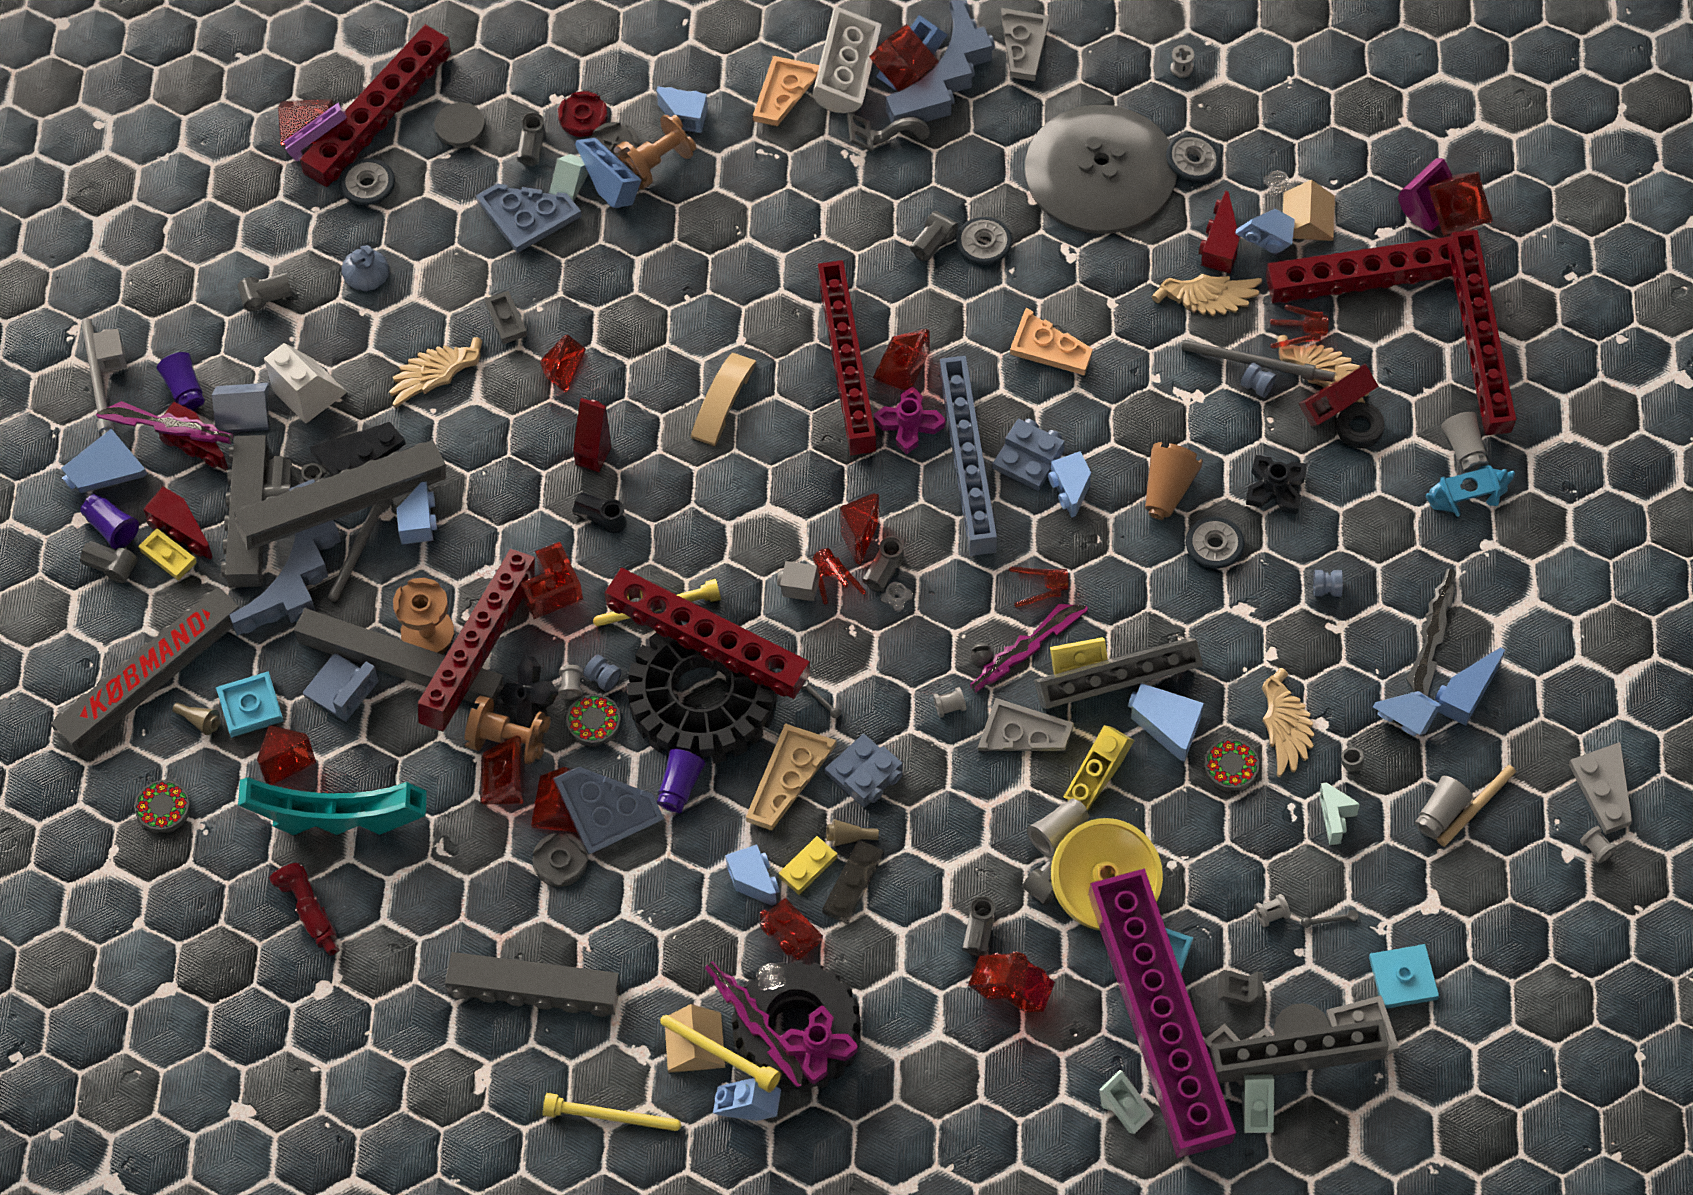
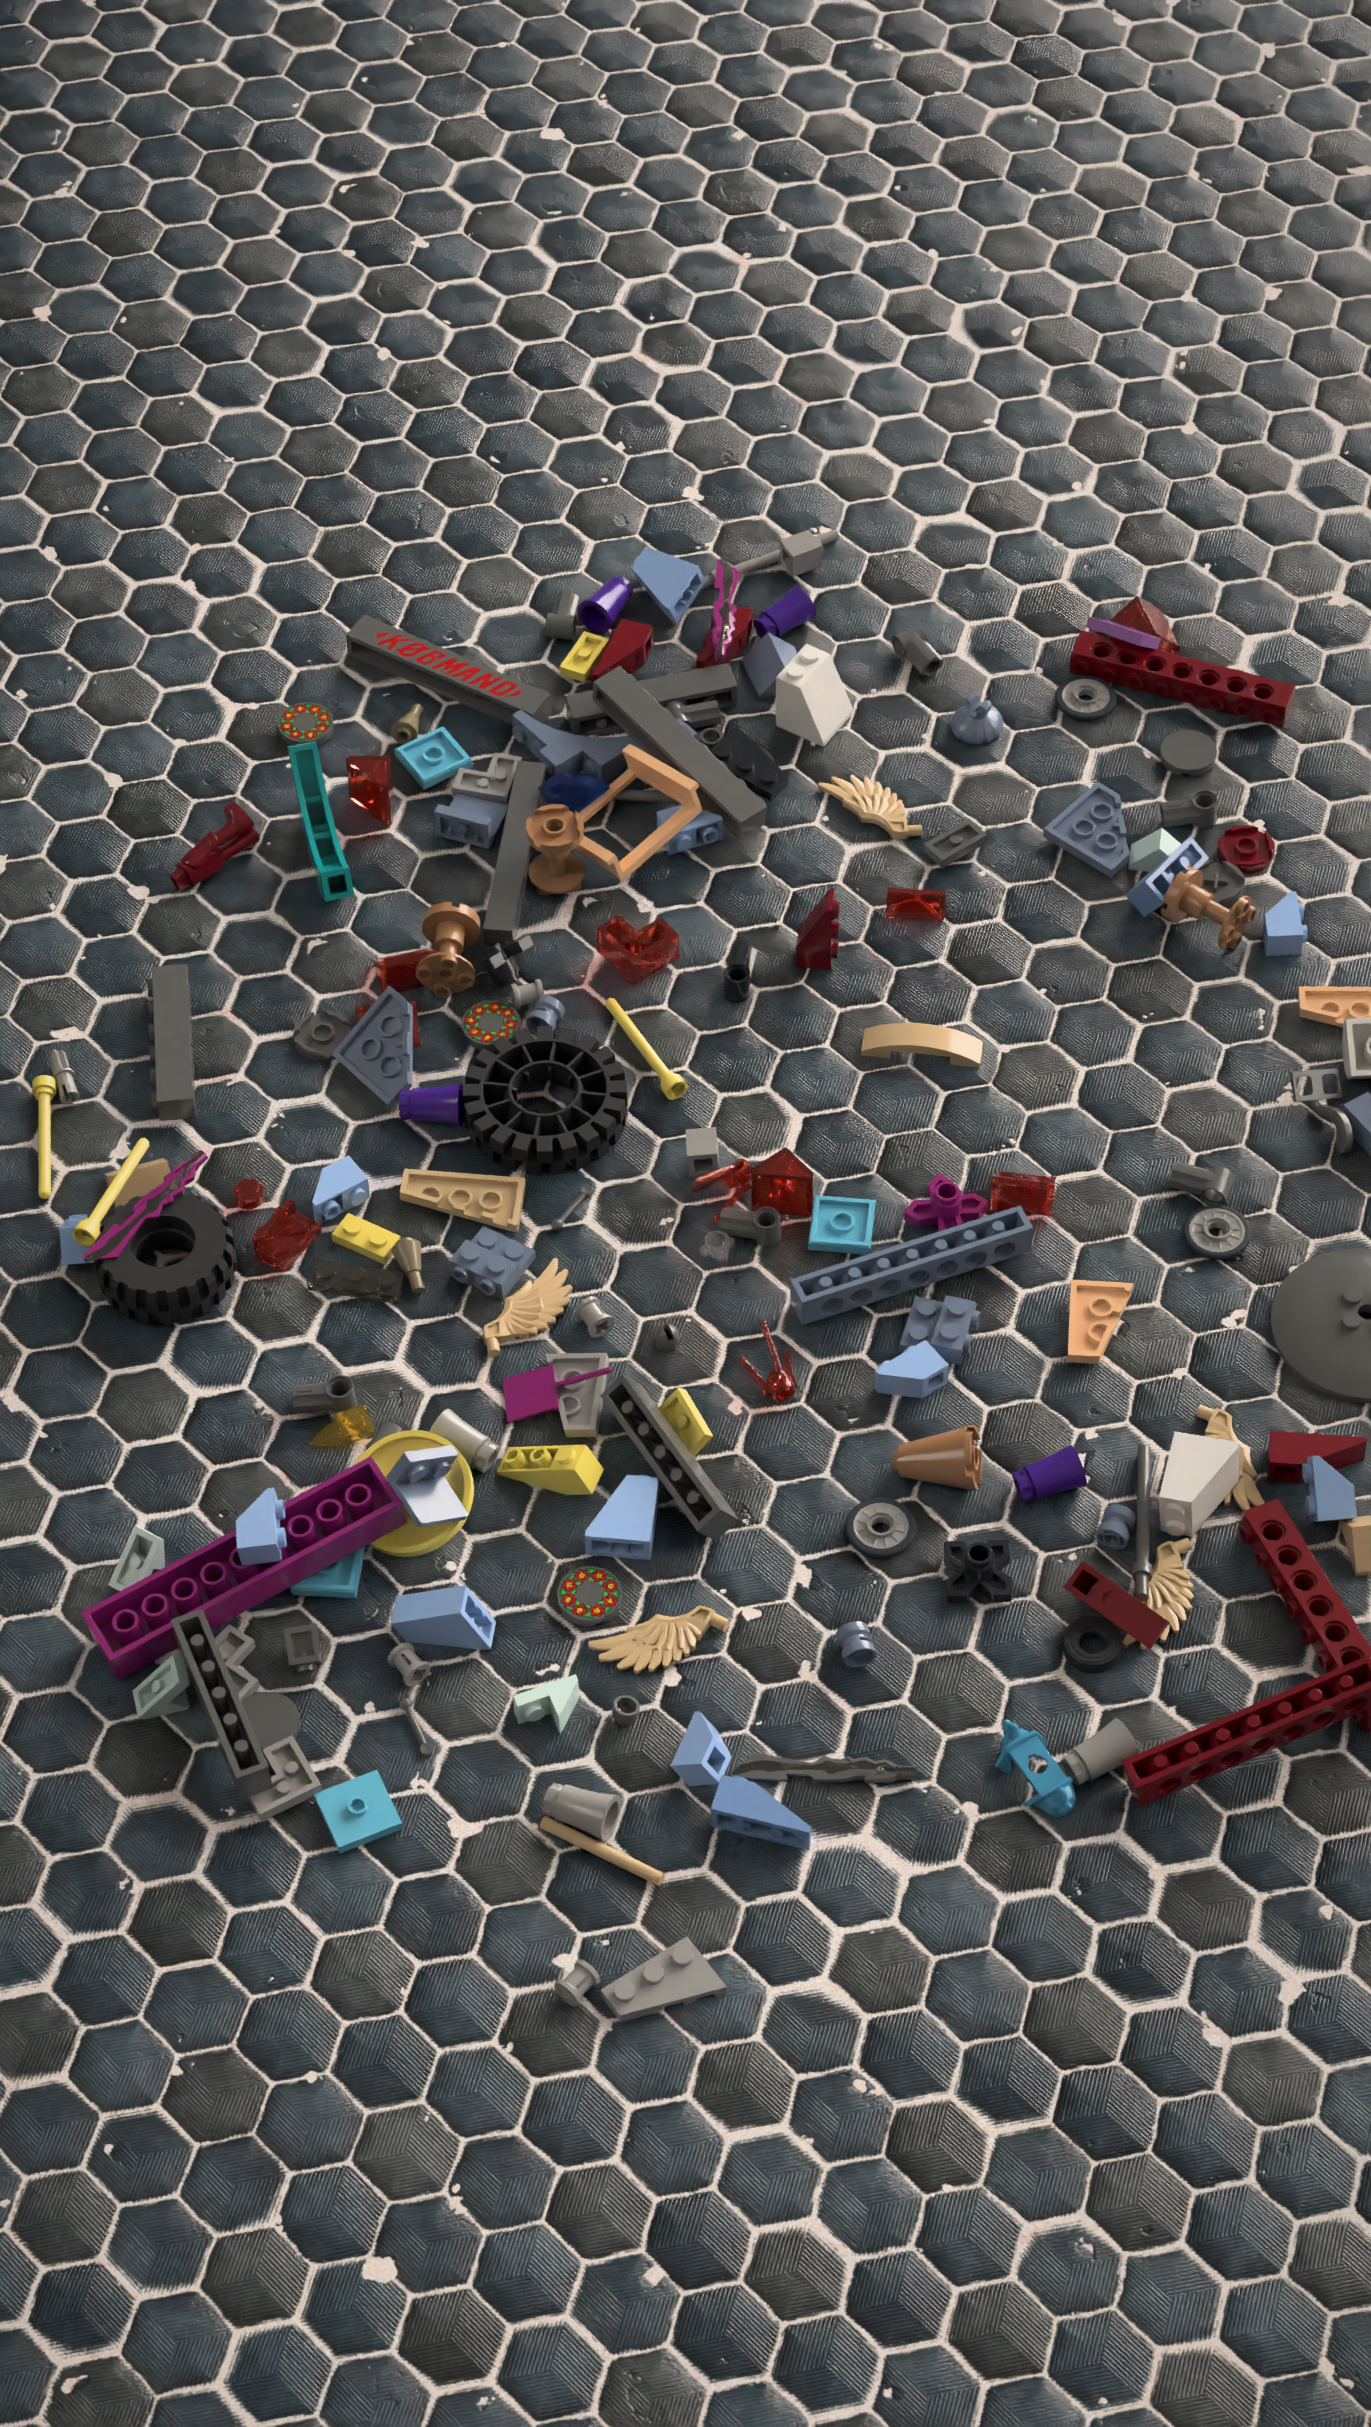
camera: 75 degrees right, 10 degrees down
(302, 662) = (490, 785): none -> light grey plate
(347, 594) = (572, 789): none -> clear blue slope
(372, 512) = (661, 778): none -> light nougat piece
(475, 641) = (534, 892): dark red brick -> none
(540, 1086) = (64, 1076): none -> light grey axle
(723, 632) = (596, 1074): dark red brick -> none
(729, 952) = (248, 1194): none -> clear red tile
(770, 976) = (197, 1203): clear plate -> none
(818, 1044) = (127, 1259): magenta plant -> none
(846, 358) = (1002, 1131): dark red brick -> none
(904, 498) = (842, 1224): none -> medium azure plate
(921, 752) = (529, 1309): none -> tan animal
(1011, 919) = (346, 1429): none -> clear yellow plate
(1012, 978) = (256, 1434): clear red brick -> none
(1015, 765) = (536, 1391): none -> magenta piece
(1025, 646) = (692, 1378): magenta sword -> none
(1131, 850) = (423, 1488): none -> sand blue bracket
(1149, 981) = (259, 1530): none -> light blue slope
(1200, 410) = (1050, 1475): none -> dark purple plant
(1237, 877) = (444, 1618): none -> light blue slope
(1242, 313) = (1196, 1481): none -> white slope
(1315, 325) = (1214, 1567): clear red plant -> none

